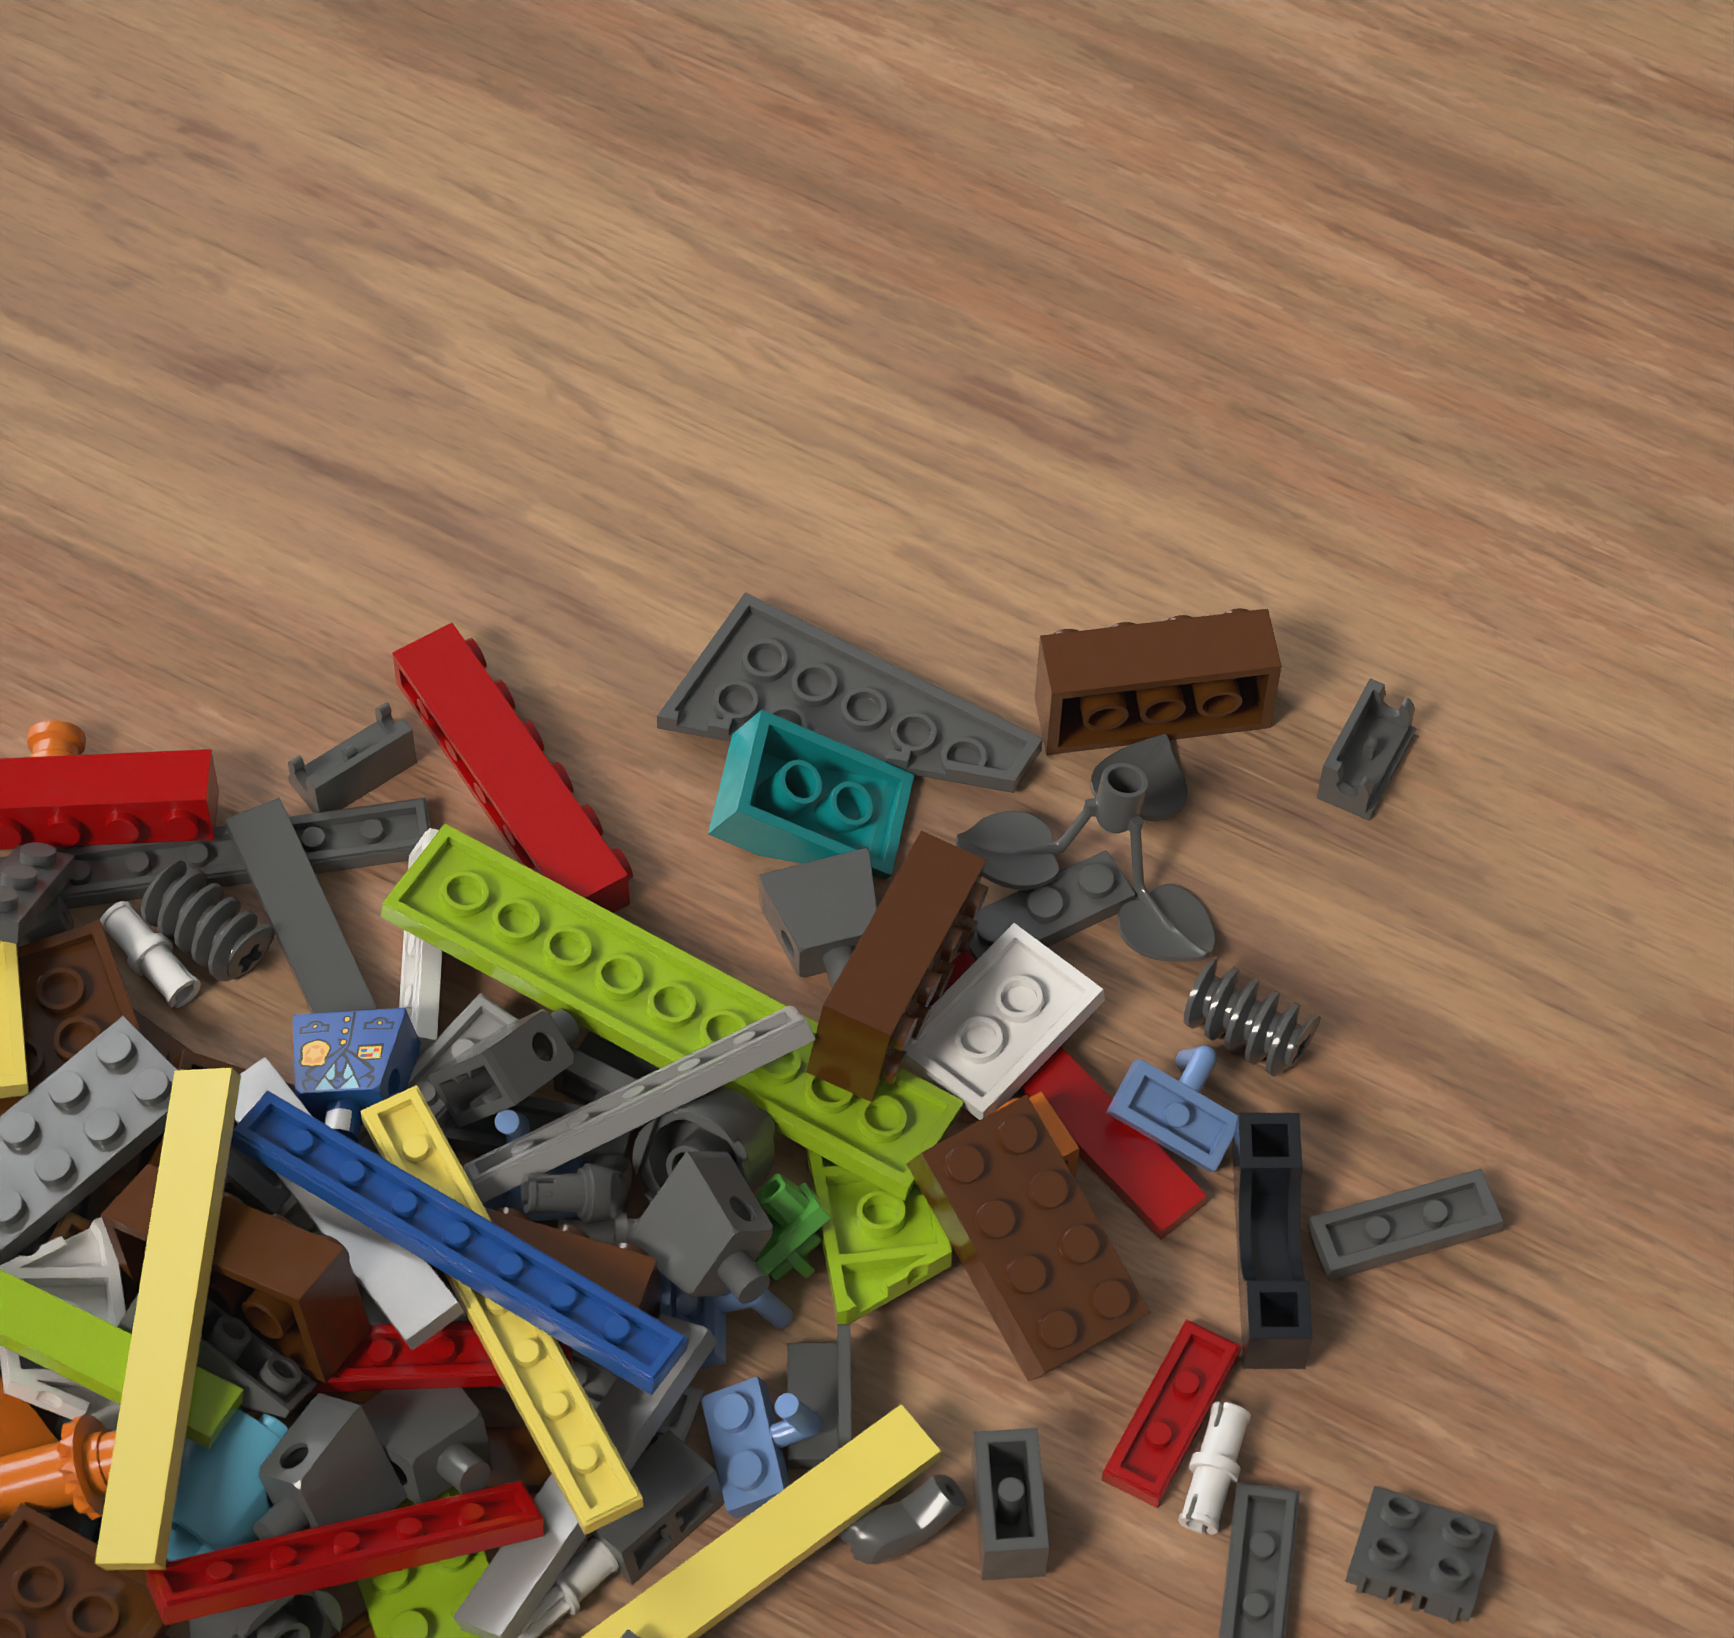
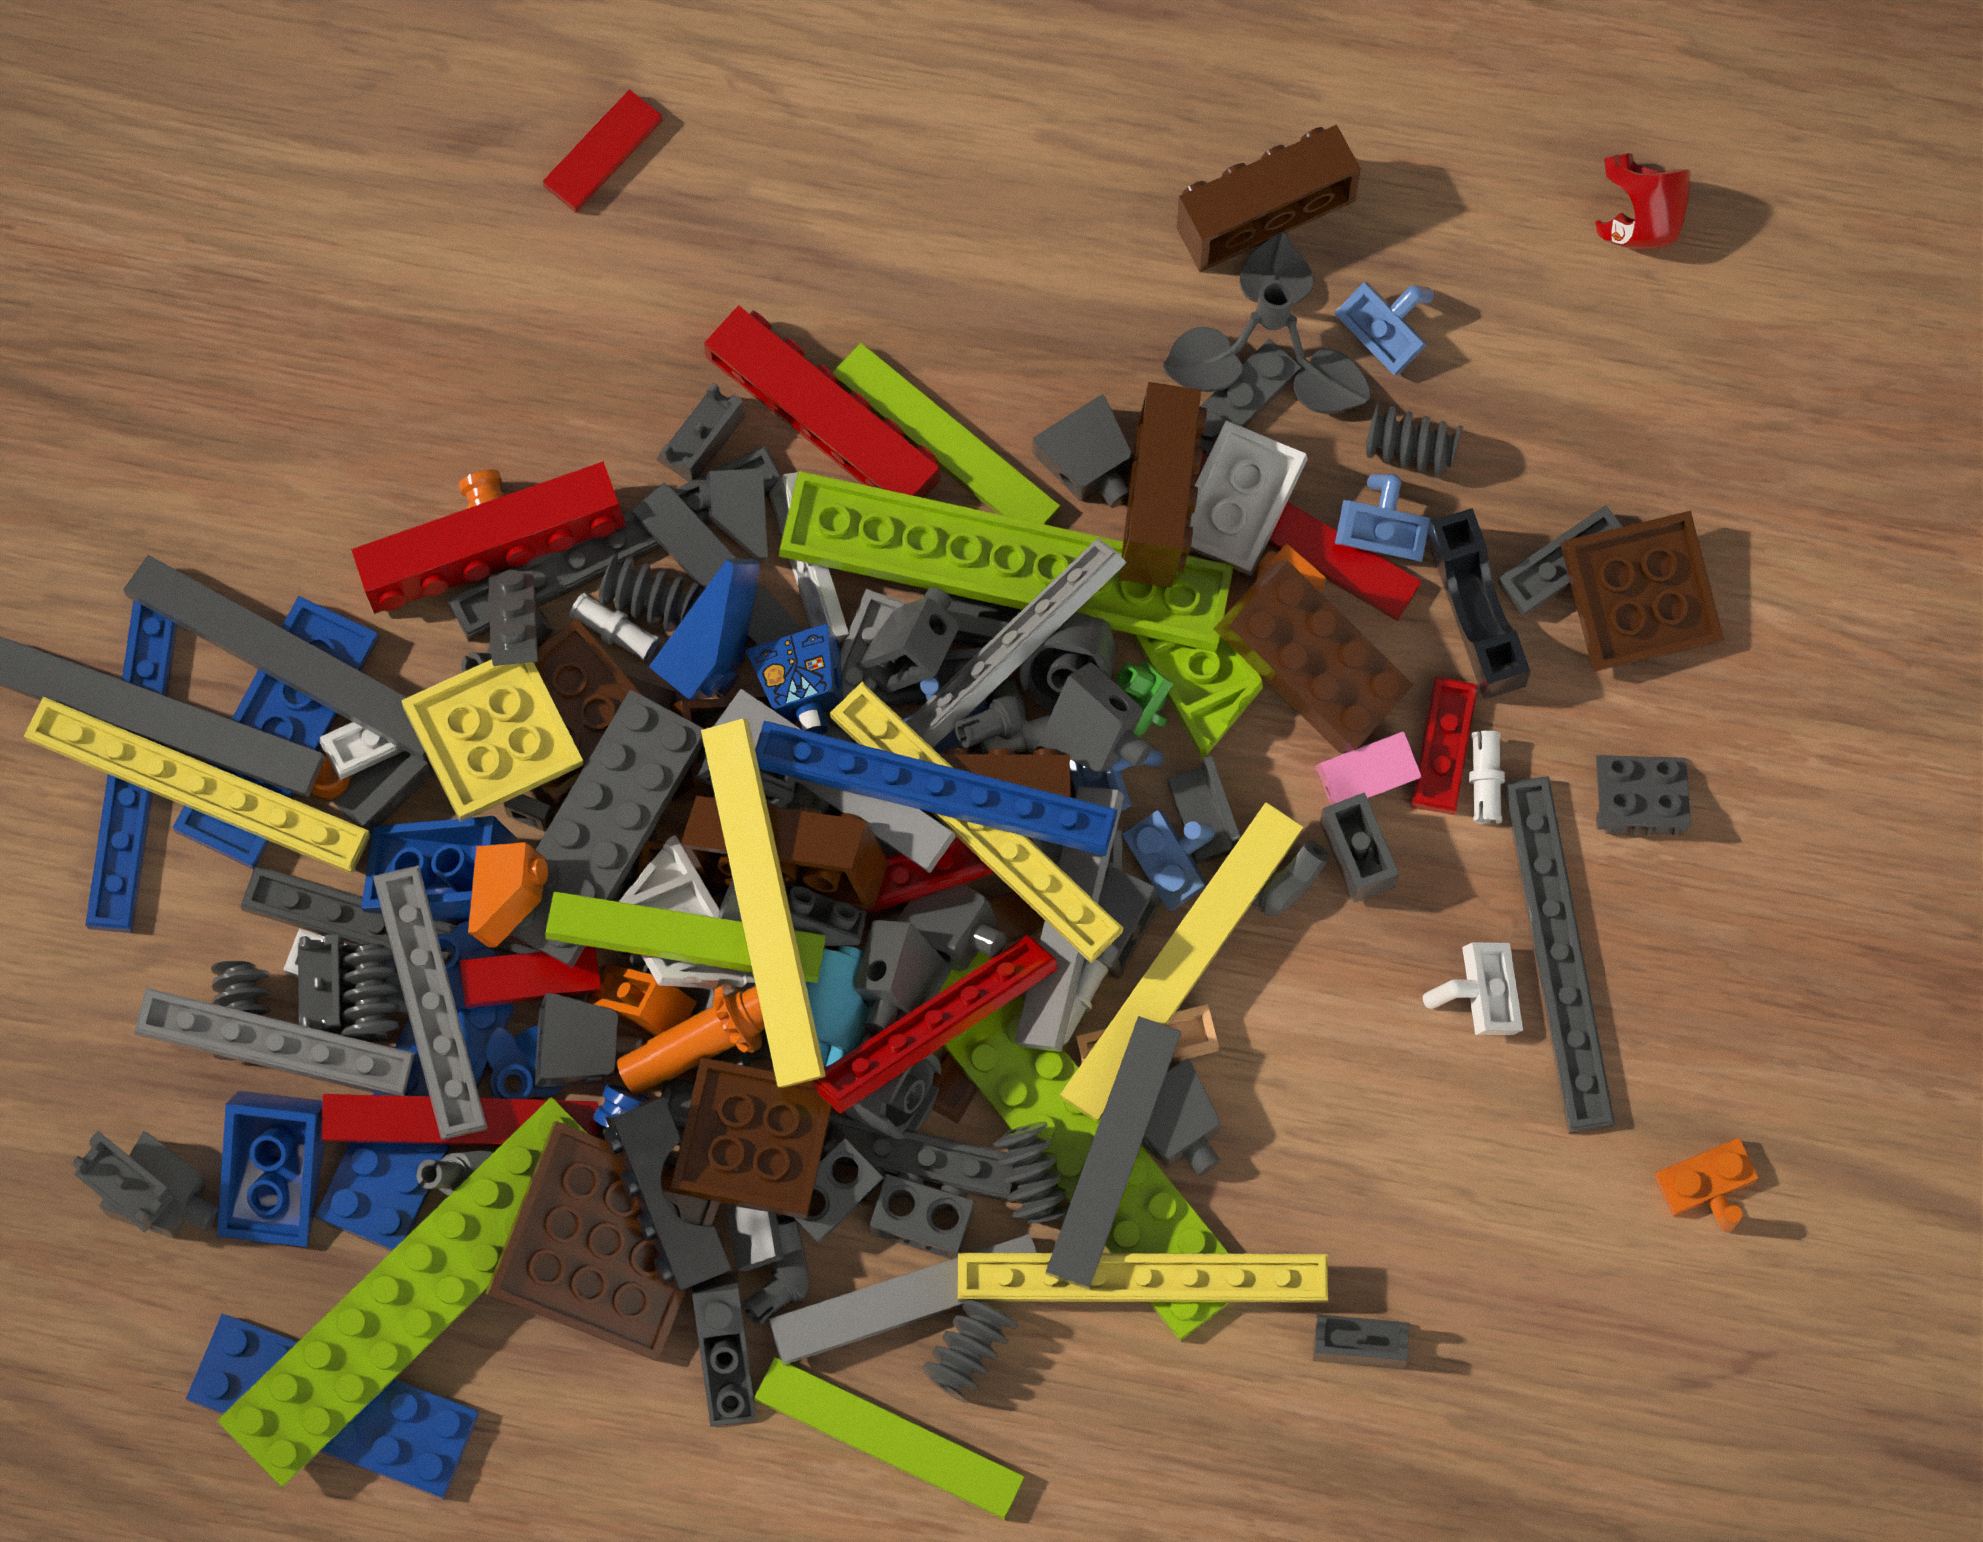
camera: 15 degrees left, 15 degrees up
(247, 989) = (713, 635): none -> blue slope
(358, 851) = (738, 507): none -> dark grey slope
(364, 421) = (602, 150): none -> red tile
(658, 861) = (954, 446): none -> lime tile
(808, 796) = (1043, 363): teal slope -> none
(846, 694) = (1020, 278): dark grey wing -> none
(1061, 1405) = (1369, 769): none -> bright pink hinge
(1257, 875) = (1383, 326): none -> medium blue plate
(1367, 752) = (1433, 204): dark grey hinge -> none
(1497, 1288) = (1642, 591): none -> reddish brown plate
(1656, 822) = (1657, 201): none -> red piece

